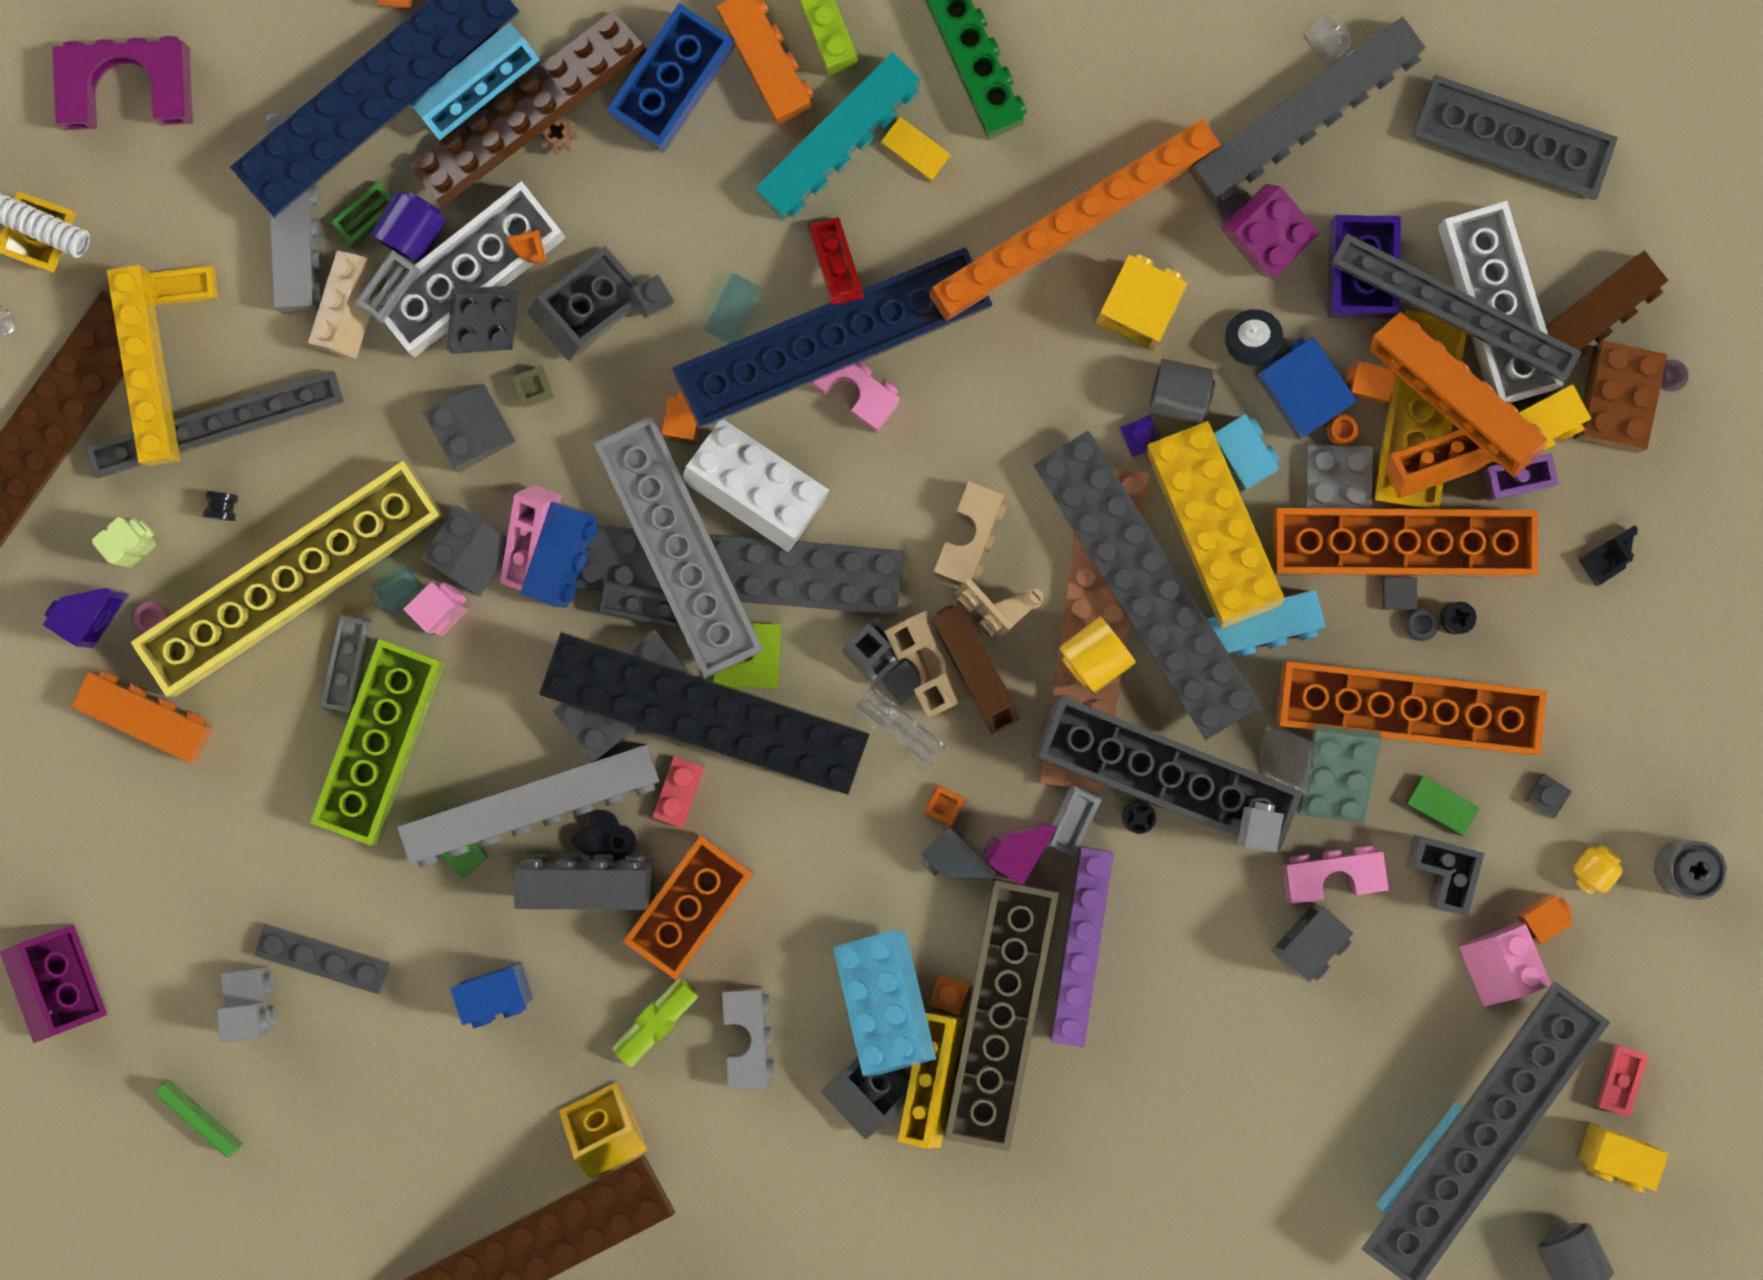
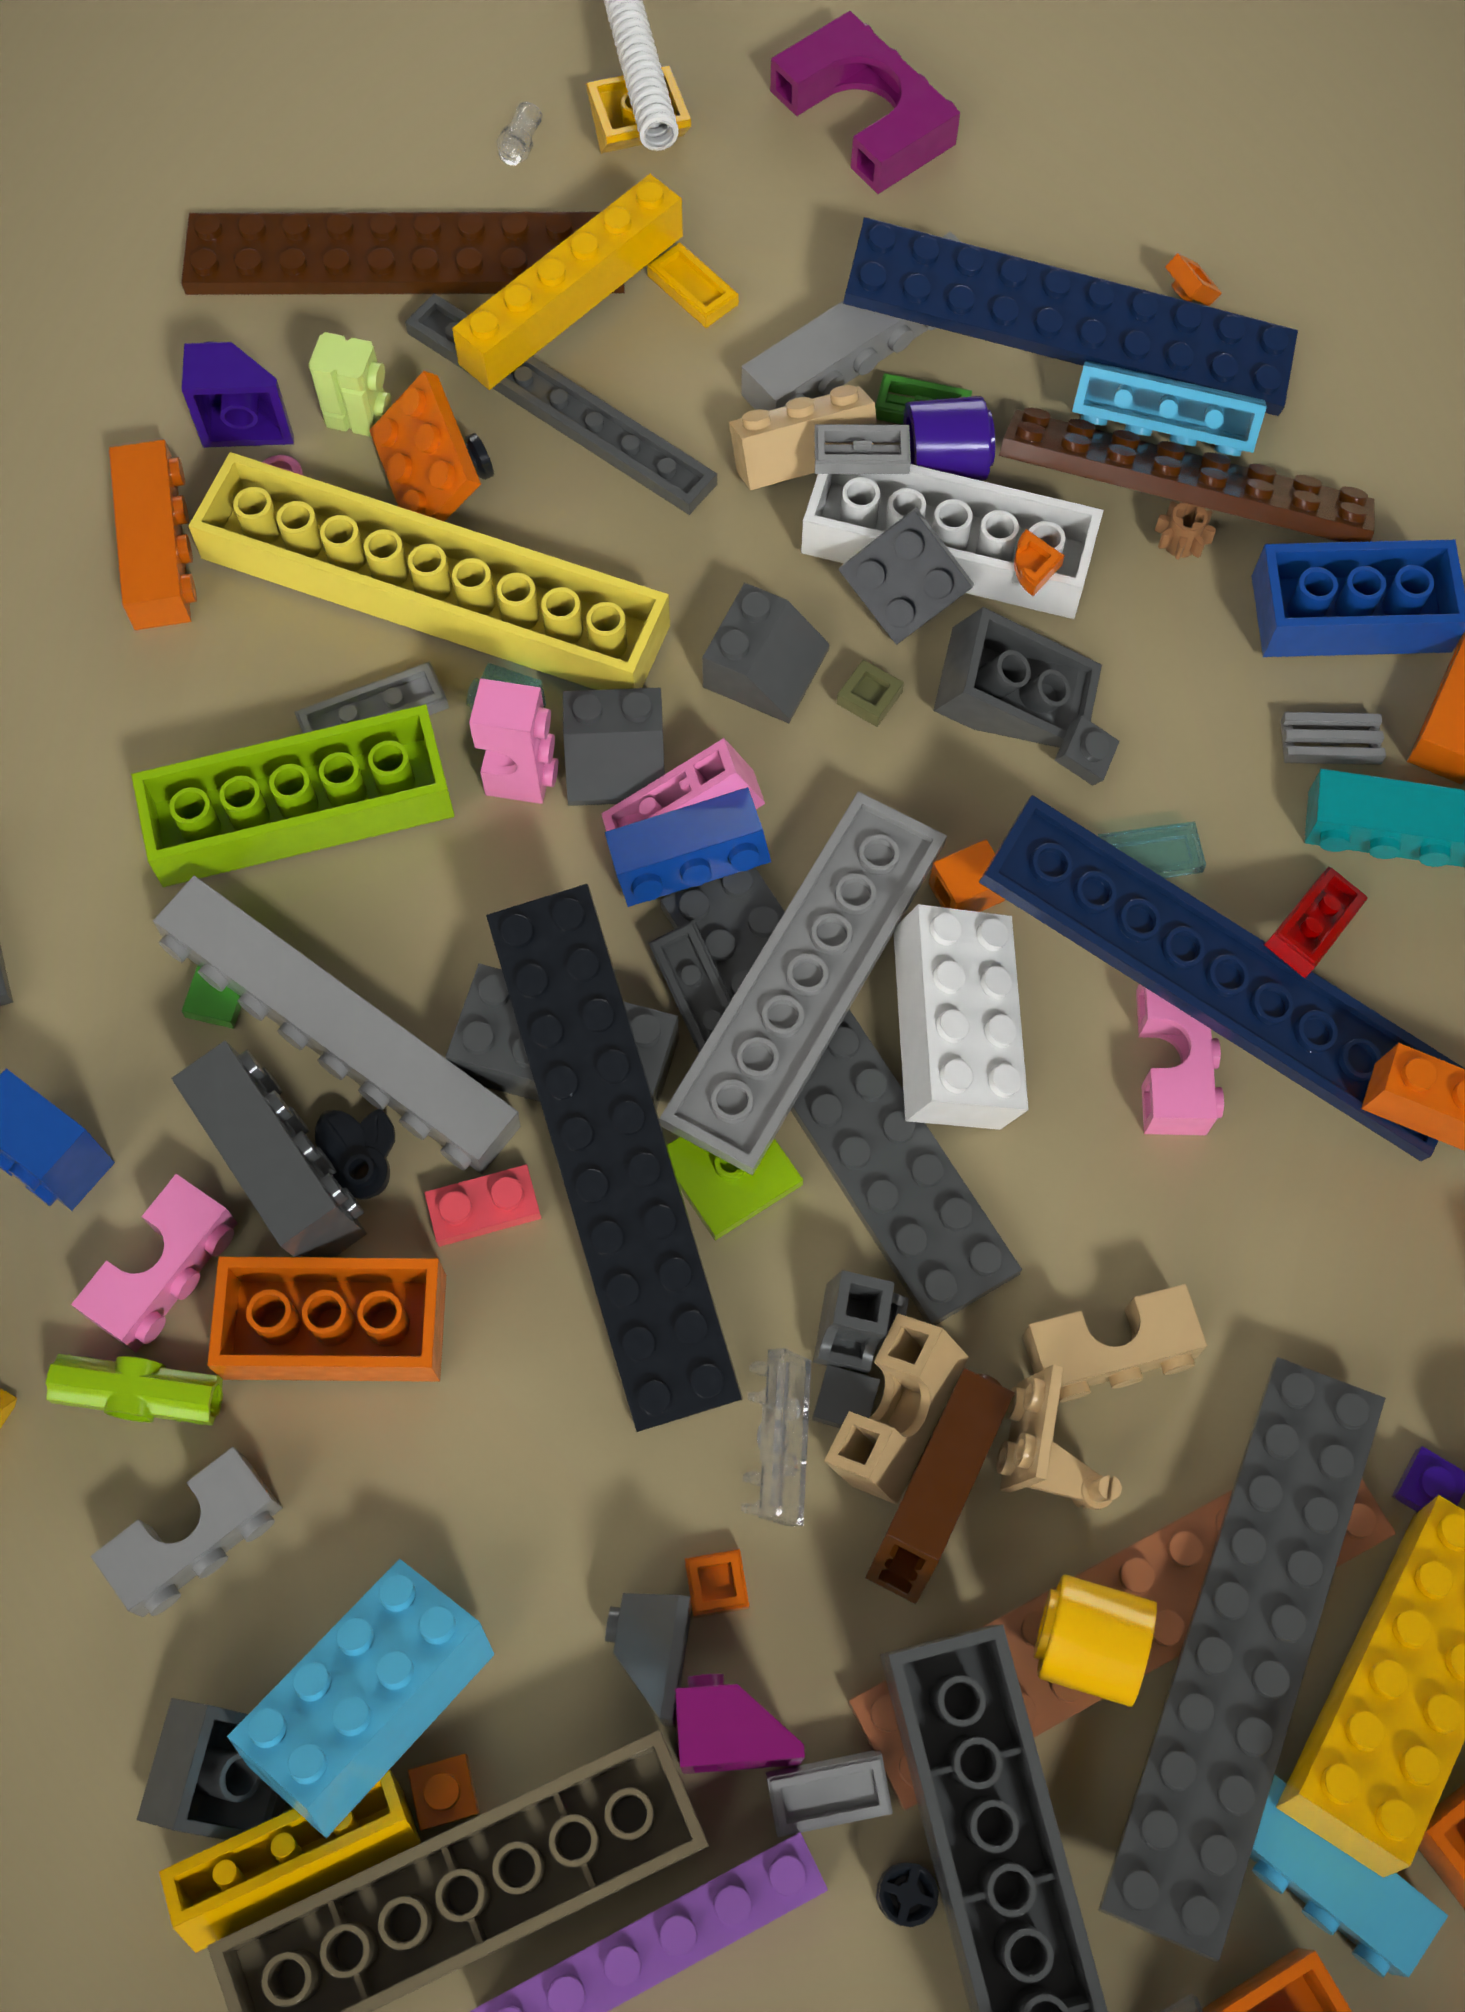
camera: 55 degrees right, 20 degrees down
(203, 530) = (425, 451): none -> orange plate
(591, 945) = (136, 1304): none -> bright pink arch
(753, 135) = (1331, 730): none -> light grey tile

